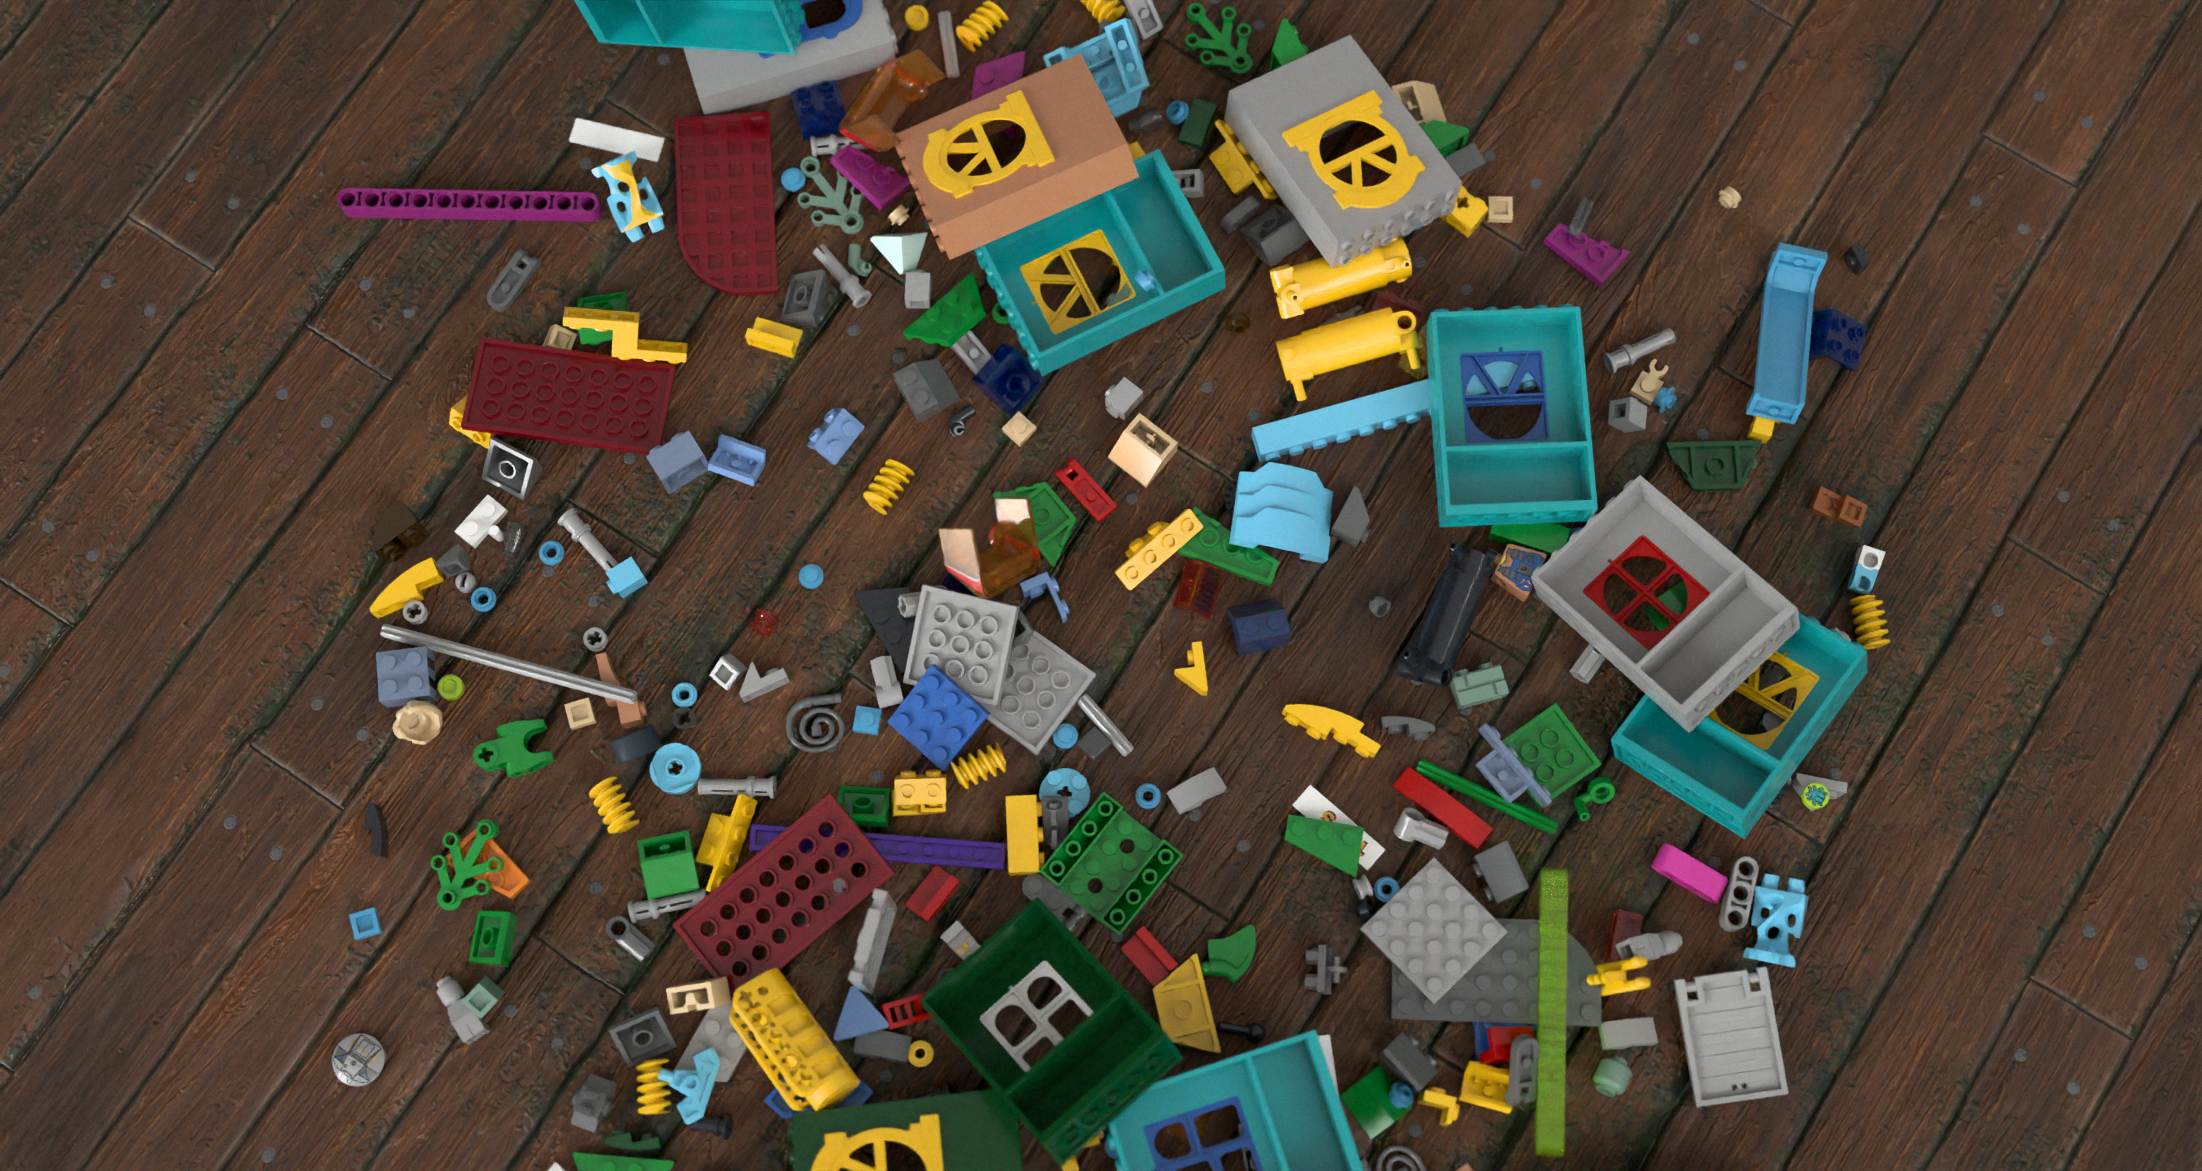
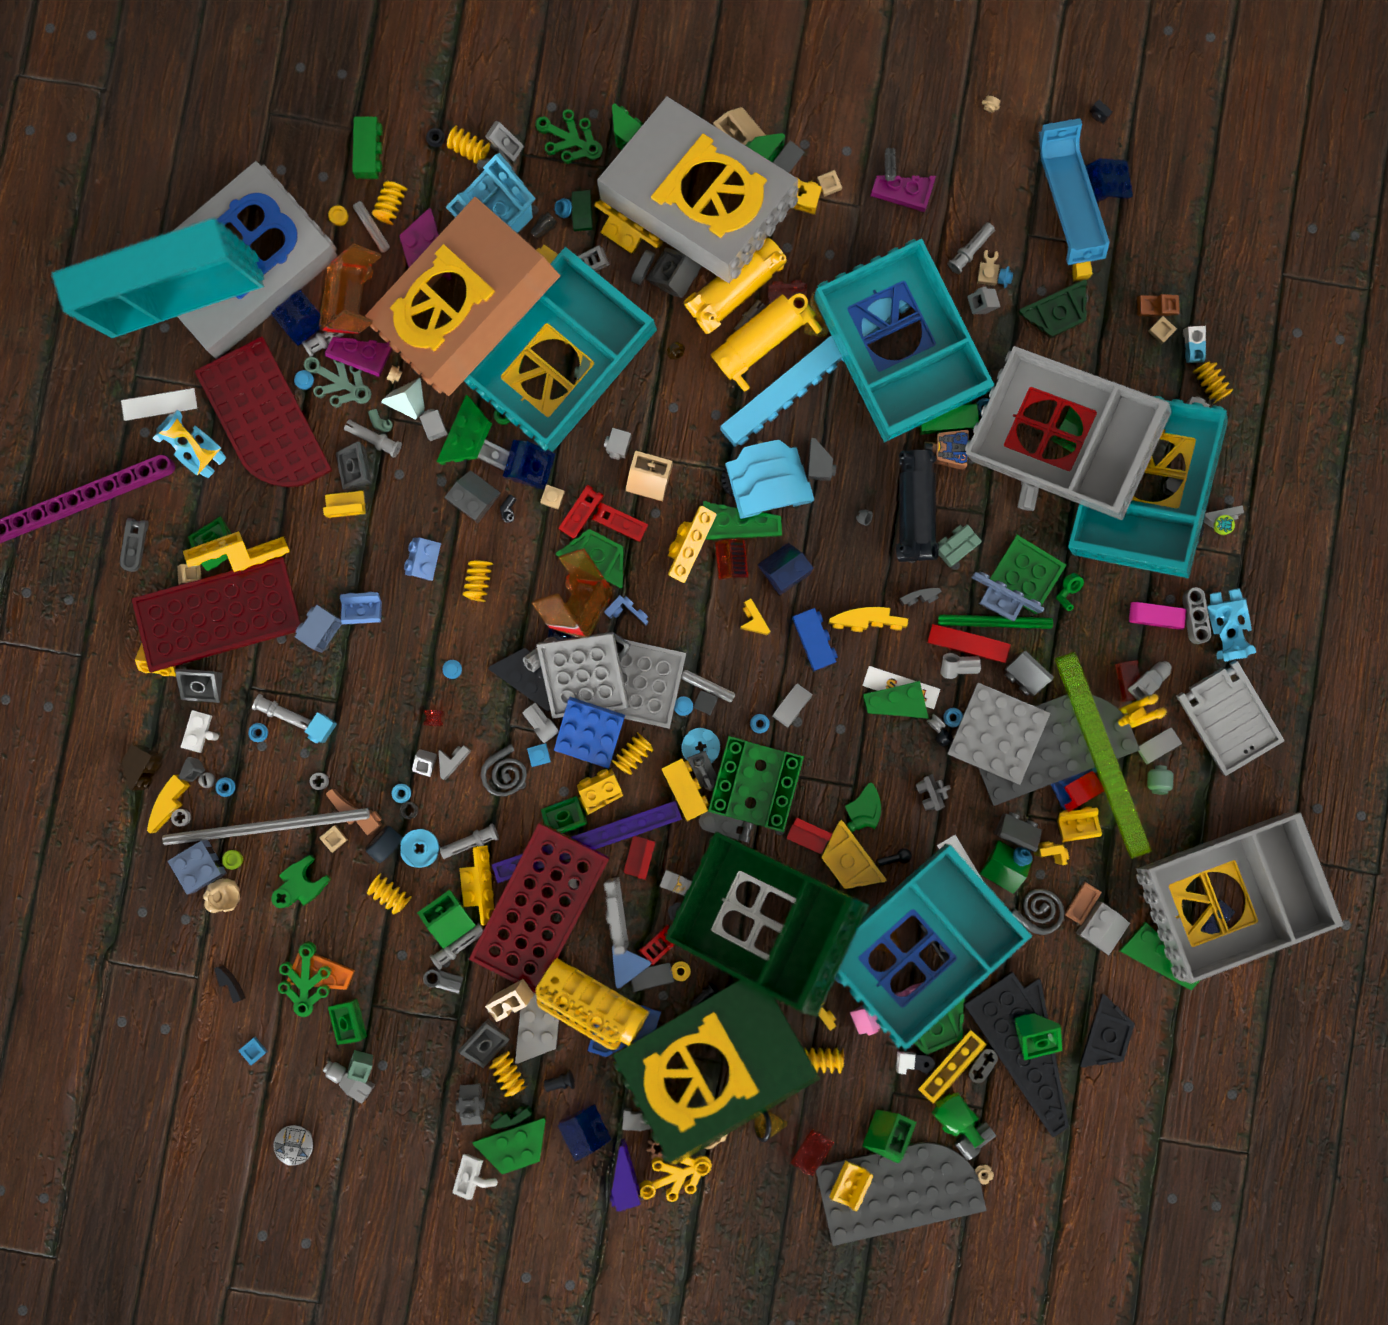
camera: 20 degrees left, 10 degrees up
(513, 539) = (226, 734): clear smoke cone -> none
(694, 1083) = (535, 1061): medium azure piece -> none
(1044, 459) = (580, 512): none -> red plate
(1145, 279) = (599, 352): dark azure plate -> none
(1257, 723) = (815, 639): none -> blue brick
(1523, 1071) = (1100, 805): dark grey plate -> none
(1831, 537) = (1162, 330): none -> tan plate

